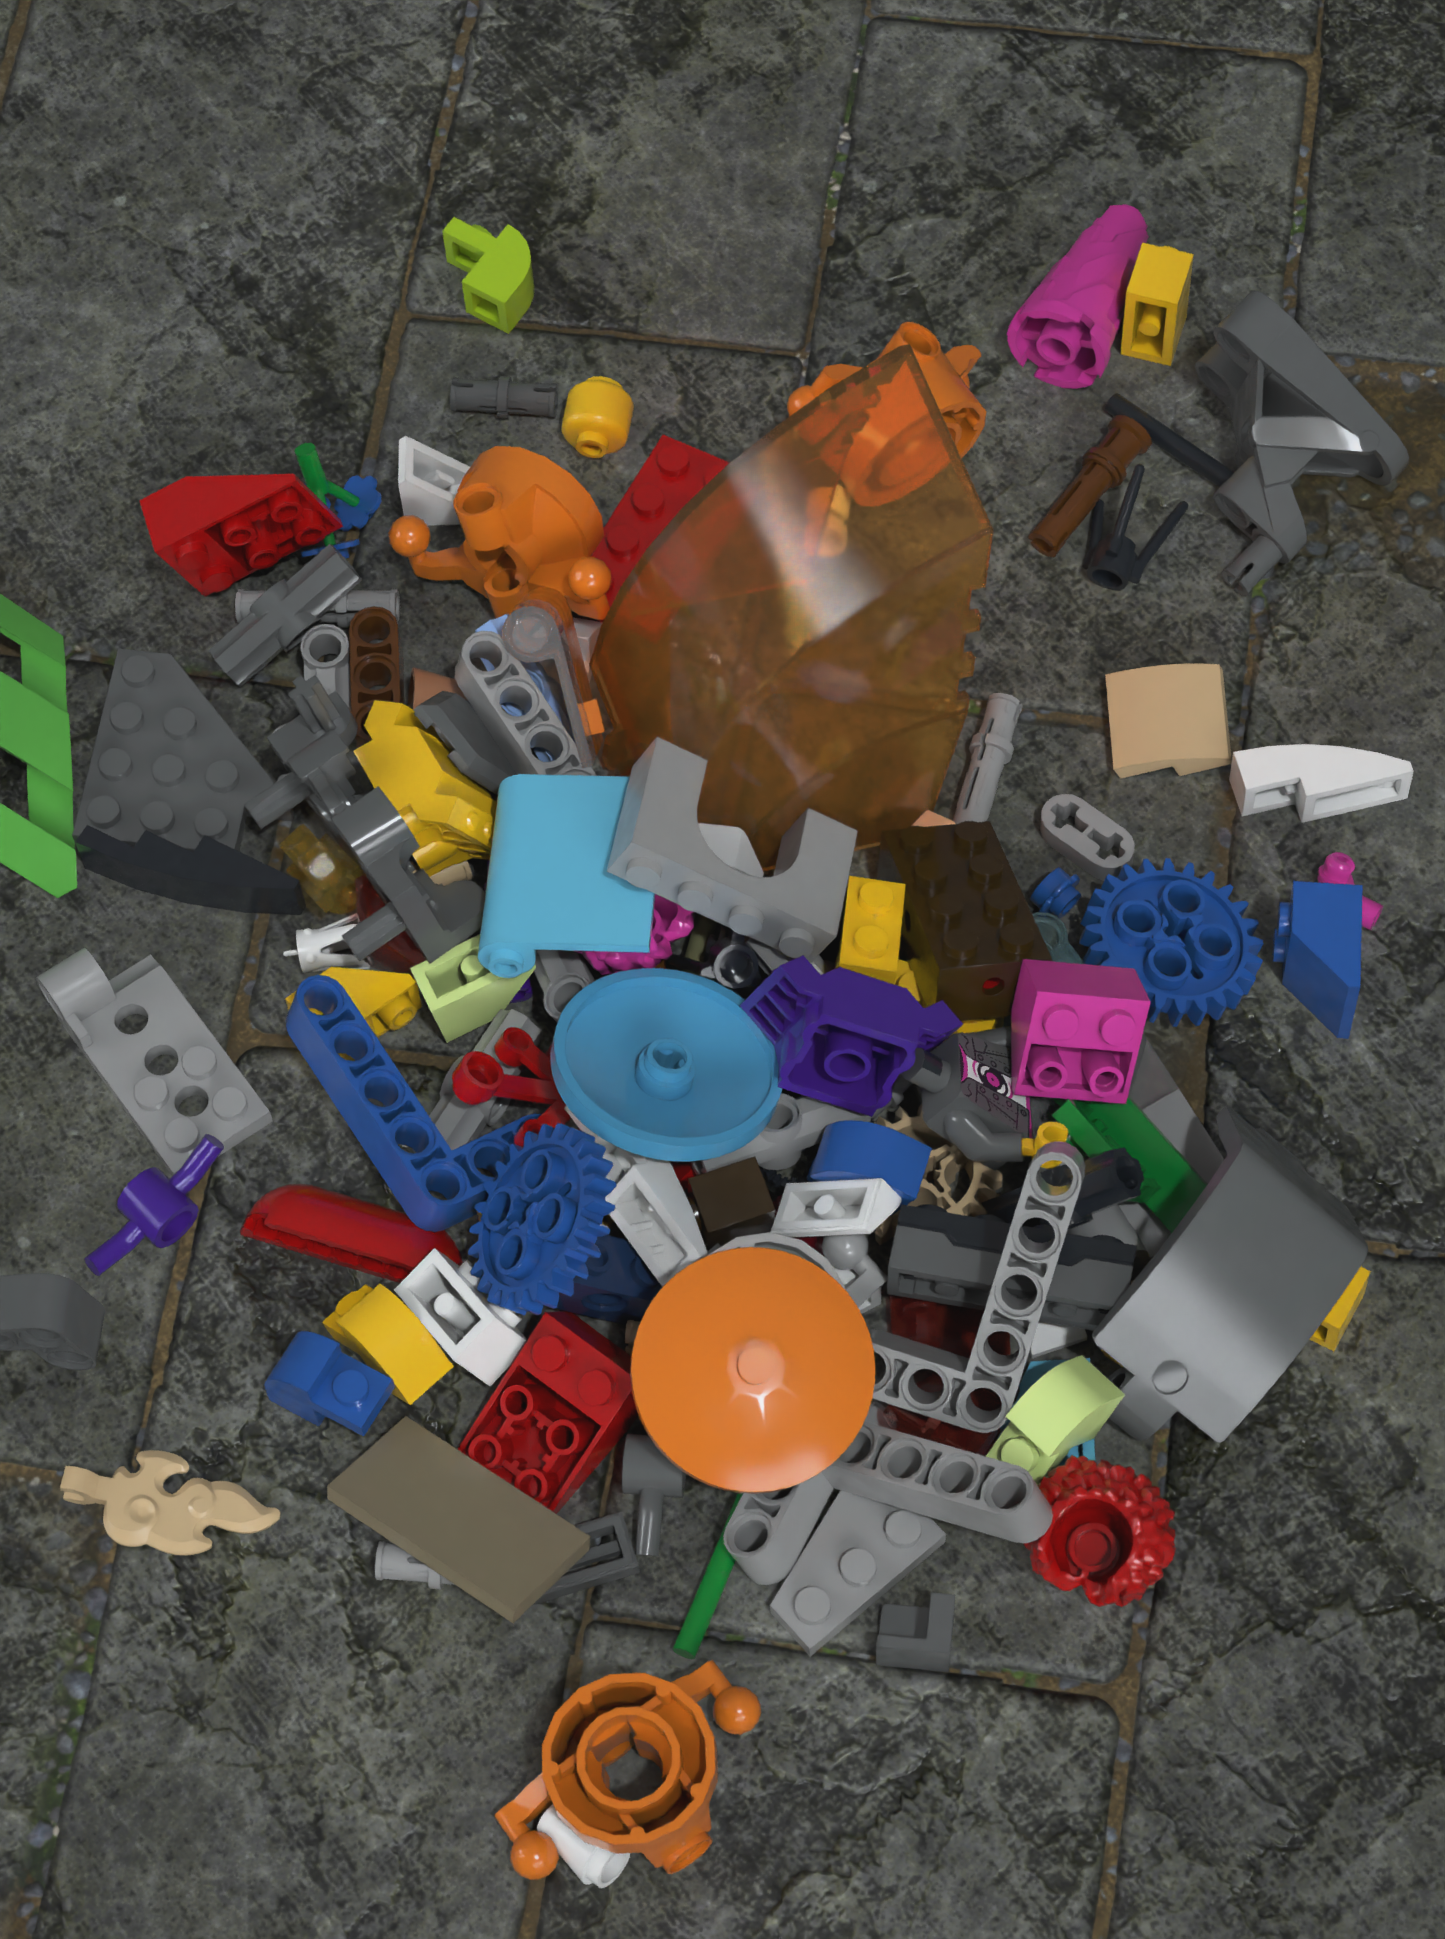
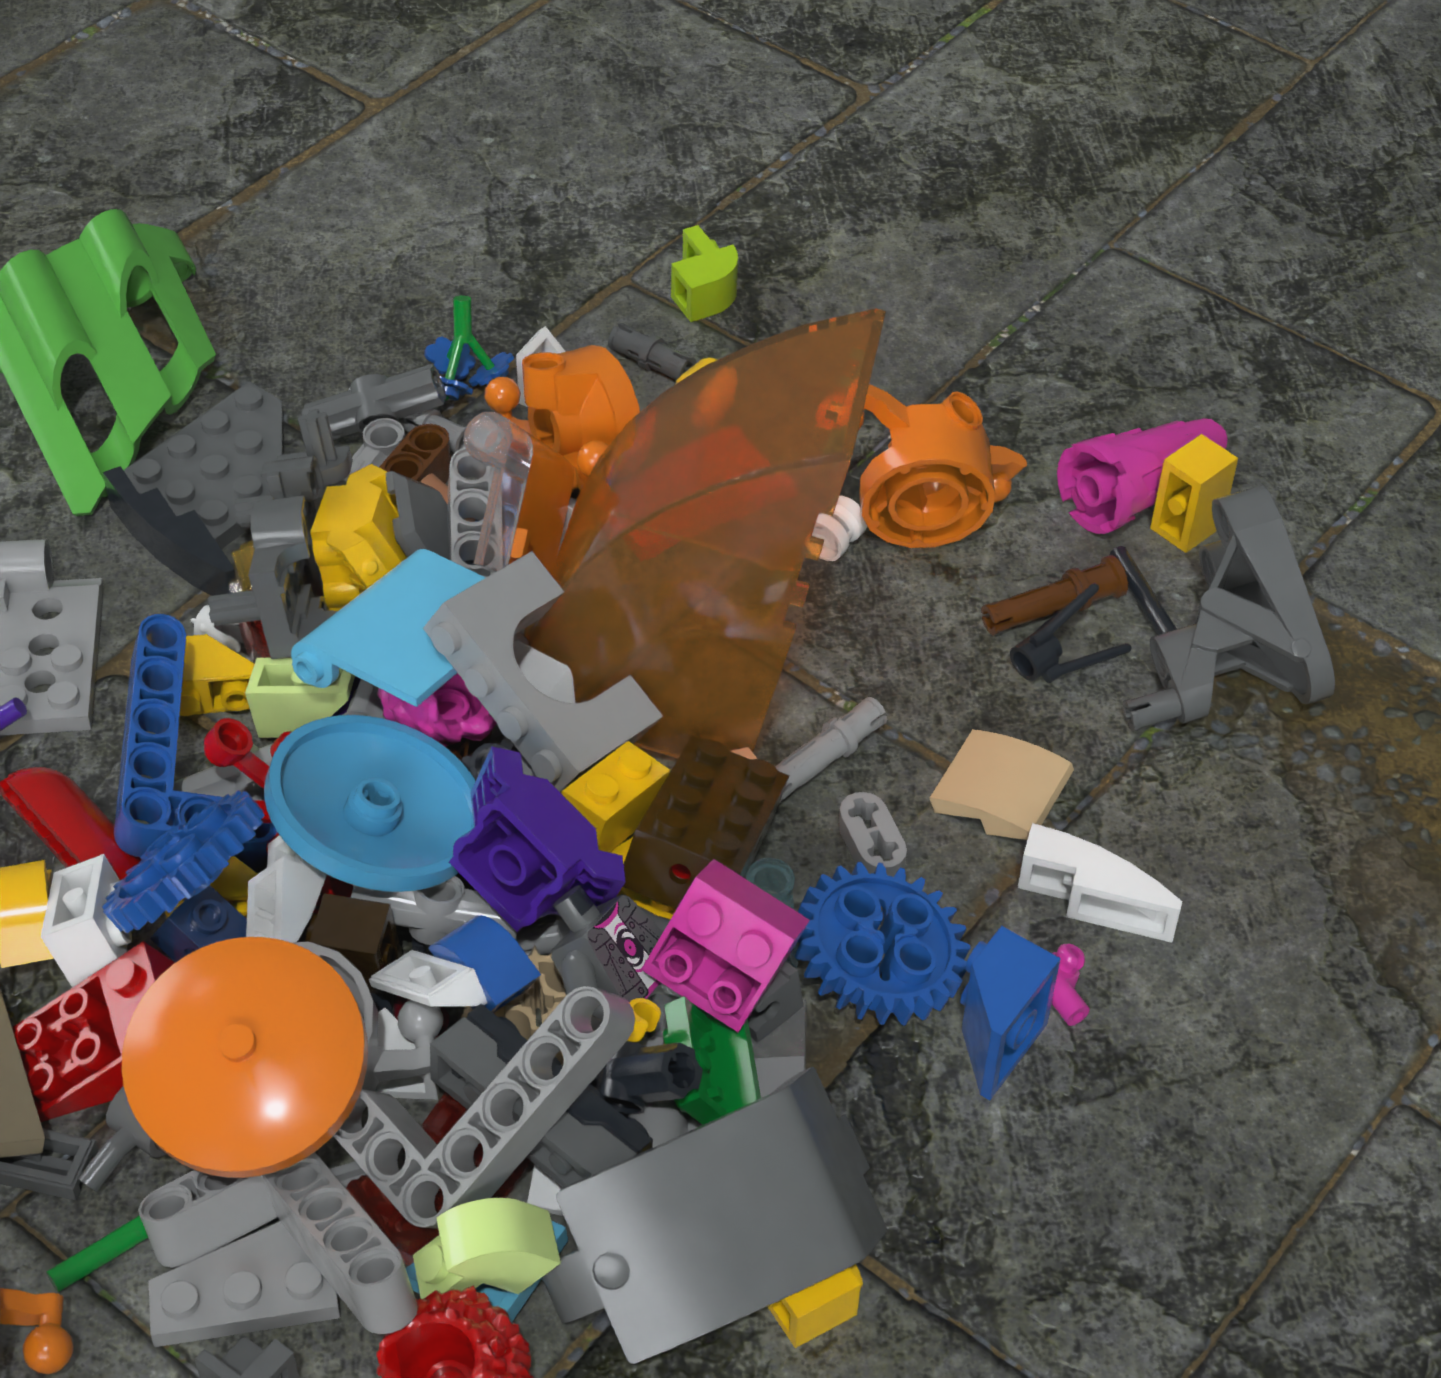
camera: 25 degrees right, 15 degrees down
(233, 525) = (378, 328): red slope -> none
(1056, 893) = (813, 860): blue plate -> none

